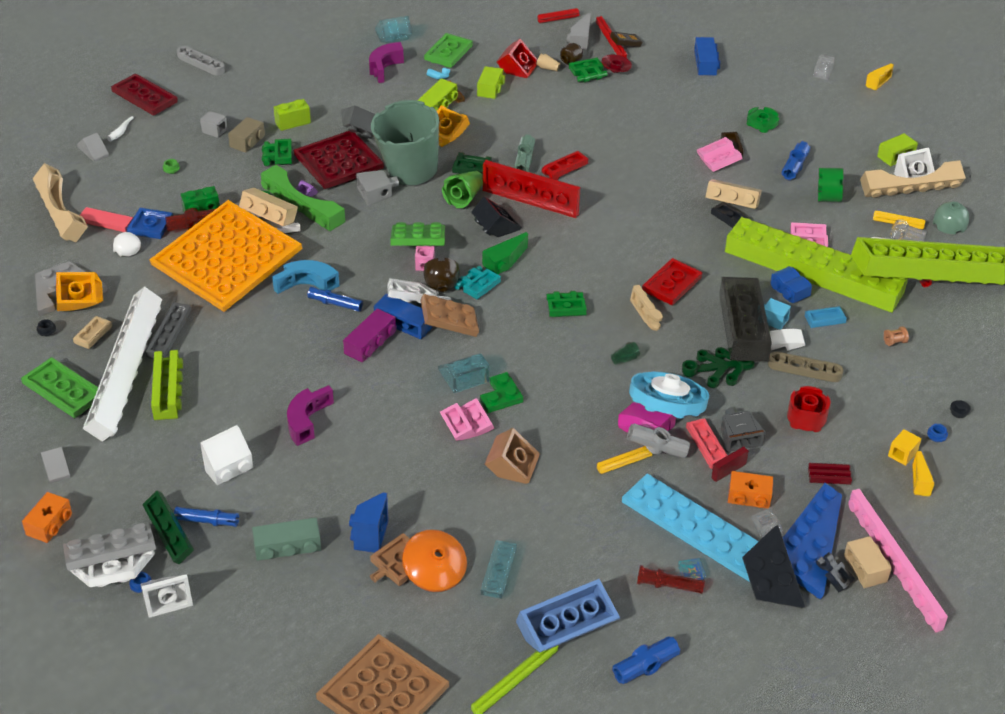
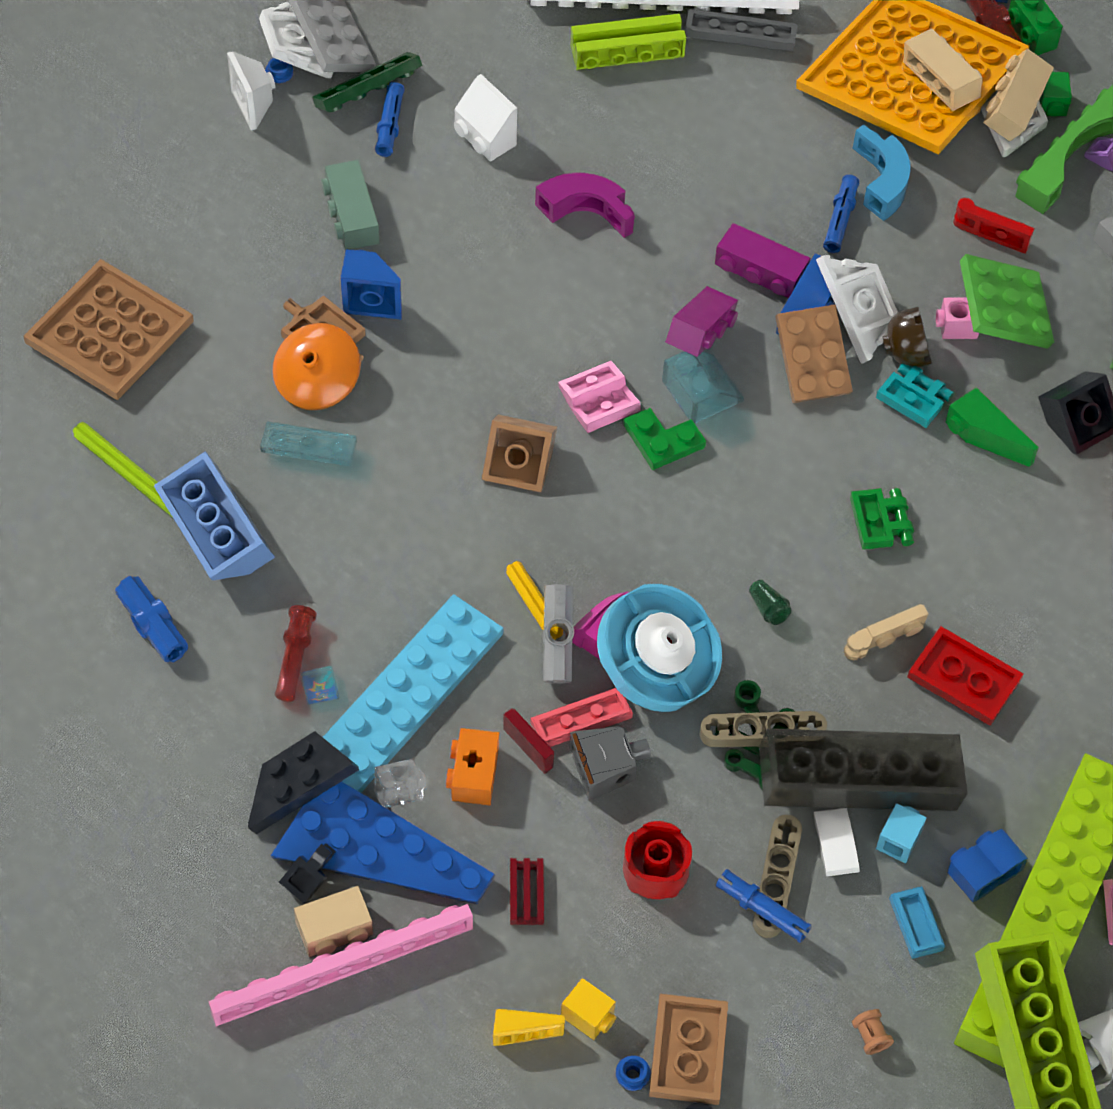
camera: 85 degrees right, 15 degrees up
(242, 232) = (942, 69): none -> tan brick
(357, 237) = (992, 226): none -> red plate
(423, 358) = (702, 321): none -> magenta brick
(715, 361) = (760, 721): none -> dark tan beam
(827, 371) = (752, 898): none -> blue pin
(919, 408) = (689, 1049): none -> medium nougat plate

